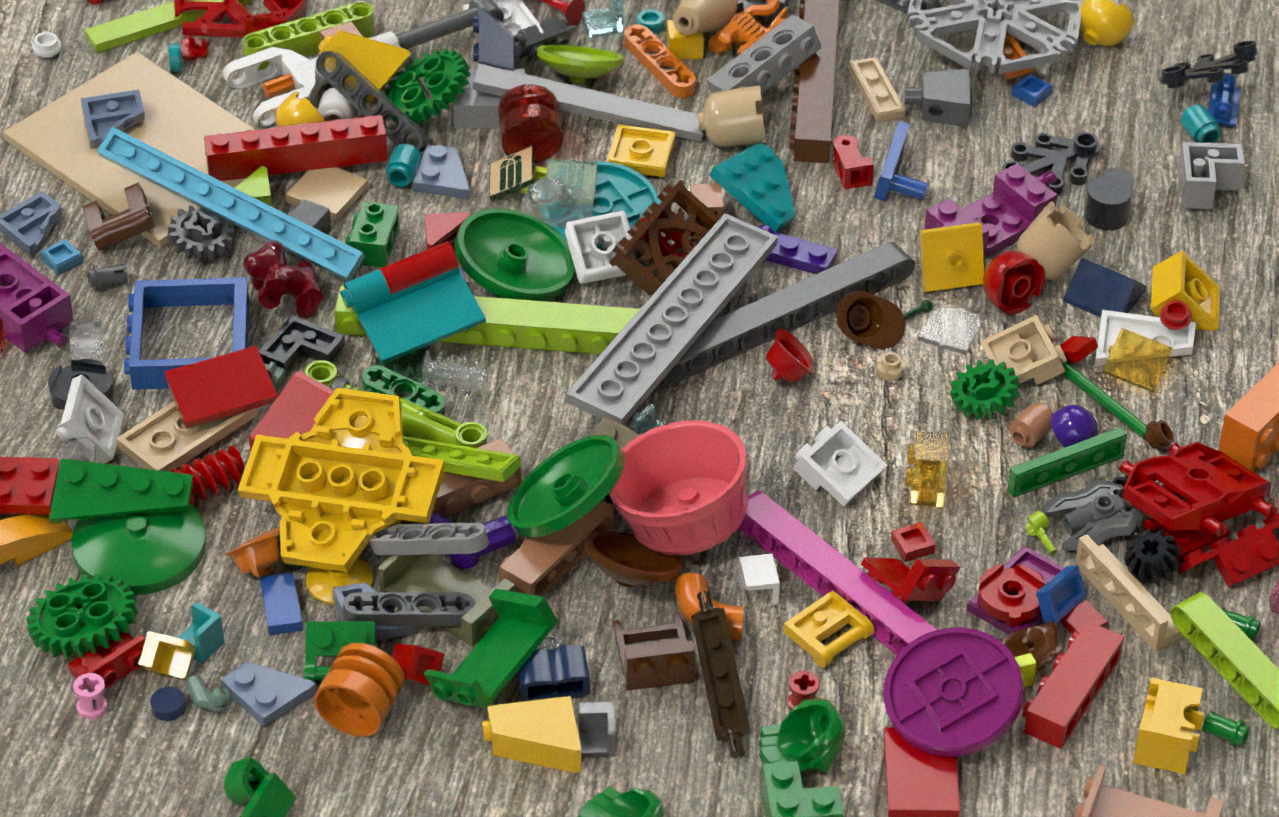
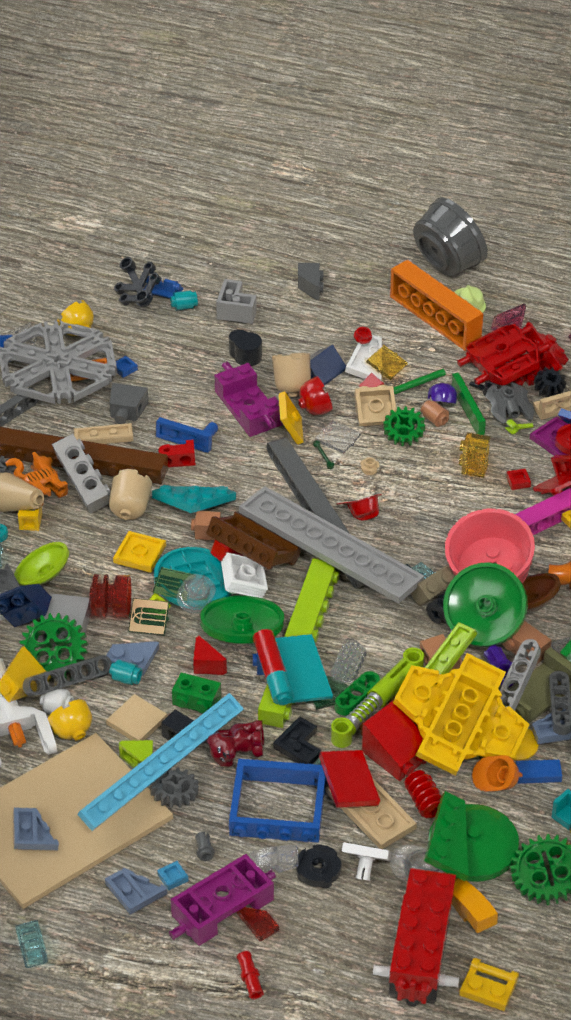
camera: 80 degrees left, 0 degrees up
(122, 225) = (159, 829): reddish brown connector -> none
(296, 148) = (104, 723): red brick -> none
(594, 103) = (93, 564): light grey tile -> none
(664, 58) = (44, 534): orange beam -> none
(759, 573) = (547, 539): white panel -> none
(801, 253) = (259, 482): dark purple plate -> none
(838, 463) = (456, 497): white plate -> none
(870, 320) = (333, 467): reddish brown piece -> none
(1083, 146) = (188, 352): black plant -> none
(1159, 435) = (450, 365): reddish brown plate -> none
(1185, 281) = (334, 333): yellow slope -> none

